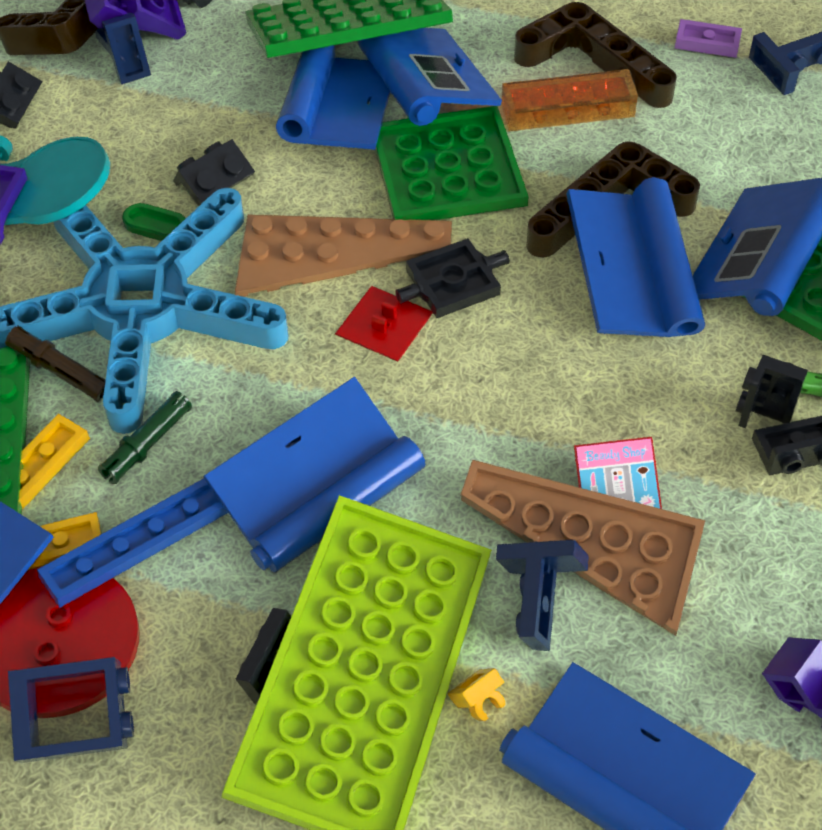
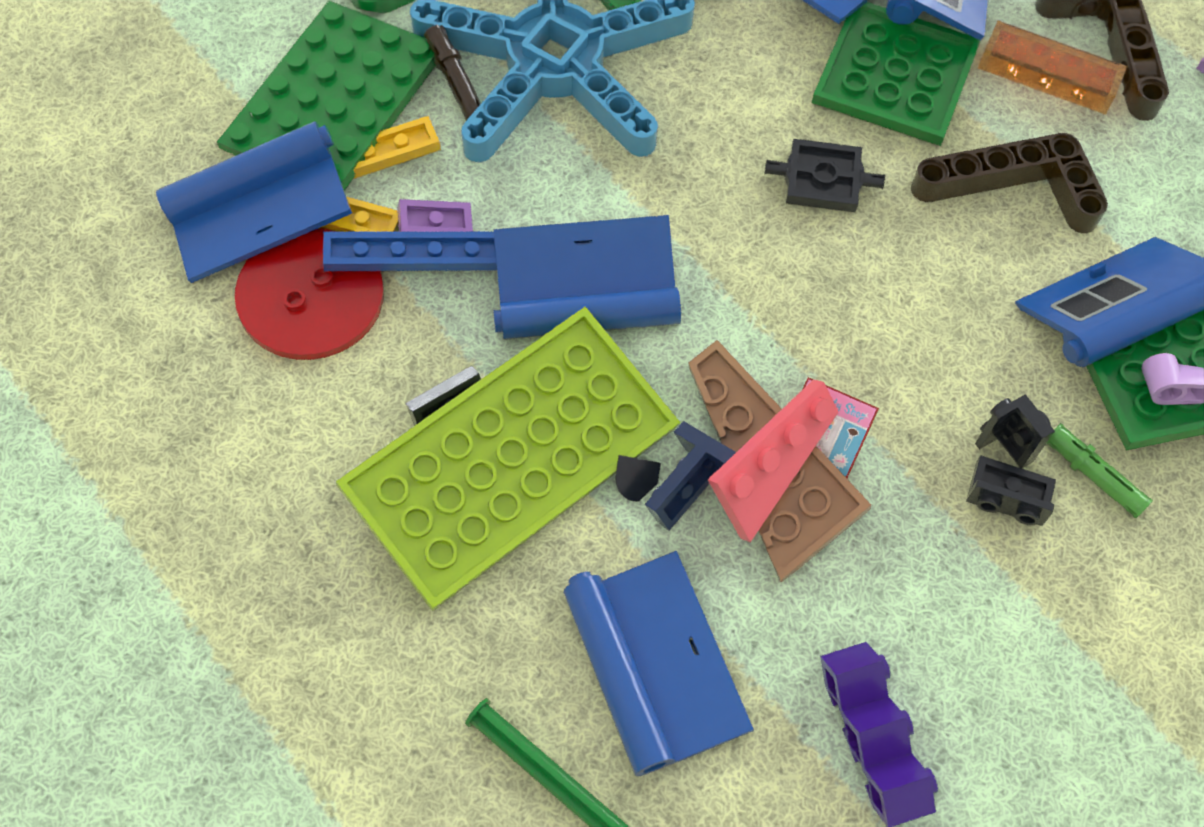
camera: 30 degrees right, 10 degrees up
(25, 718) = (246, 336): dark blue window -> none
(130, 499) = (433, 216): none -> medium lavender plate
(135, 447) = (470, 175): dark green pin -> none
(313, 249) = (732, 87): medium nougat wing -> none
(384, 323) = (739, 183): red piece -> none
(476, 689) = (583, 525): yellow tile -> none
(487, 621) = (636, 477): none -> black piece
(600, 531) = (767, 464): none -> coral wing
(635, 262) = (1000, 251): blue door -> none

